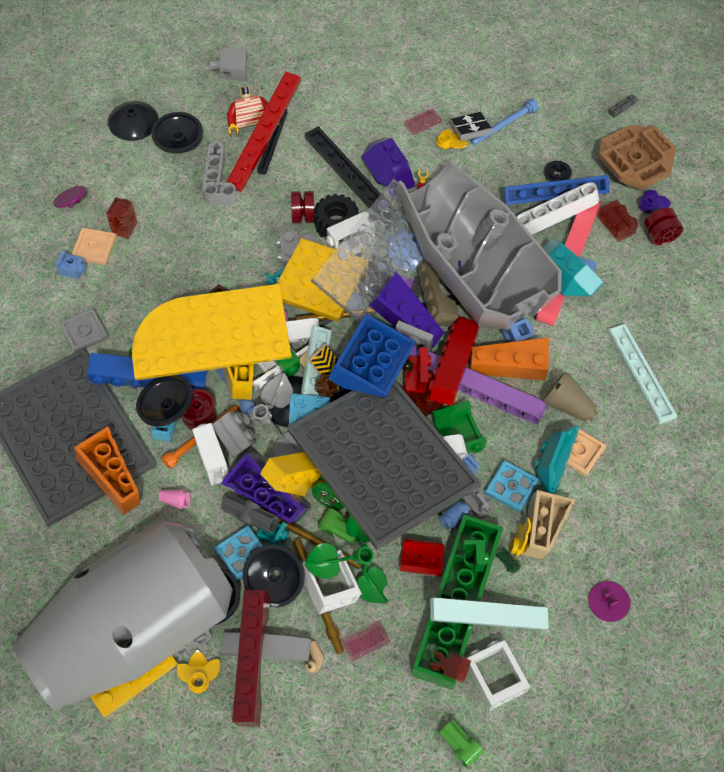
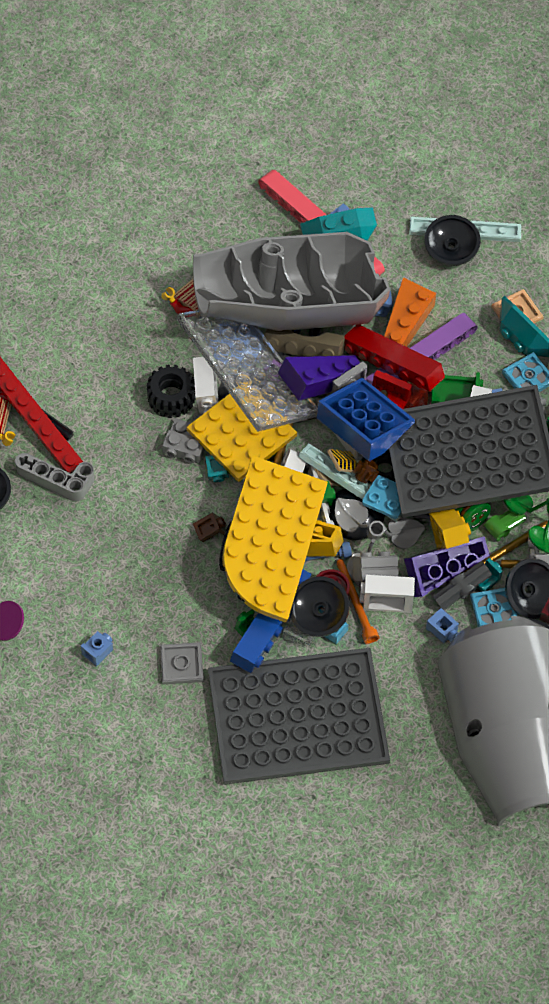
camera: 65 degrees left, 0 degrees up
(94, 245) = (79, 620): light nougat tile -> none
(108, 469) = (368, 681): orange wedge -> none
(121, 217) = (69, 577): clear red brick -> none
(175, 498) = (413, 643): bright pink cone -> none
(202, 508) = (442, 620): none -> medium blue brick
(302, 207) = (144, 413): dark red wheel -> none
(342, 166) = (120, 359): black plate -> none
(387, 163) = (124, 321): dark purple wedge -> none
(422, 121) = (86, 270): clear pink tile -> none
(448, 139) = (125, 256): yellow plate -> none
(471, 126) = (120, 232): tile -> none
(529, 107) = (123, 173): medium blue piece -> none
(549, 190) = (240, 198): blue brick -> none
(557, 166) = (220, 182): black gear -> none
(560, 208) = (267, 197): white beam -> none
(570, 399) = (466, 293): dark tan cone -> none
(616, 353) = (452, 231): none -> black dish
(618, 220) = (300, 167): clear red brick -> none
(623, 105) = (165, 98): dark grey axle -> none
(638, 155) = (240, 114): medium nougat piece -> none
(652, 201) = (293, 131): dark purple plate -> none
(663, 226) = (329, 135): dark red wheel -> none

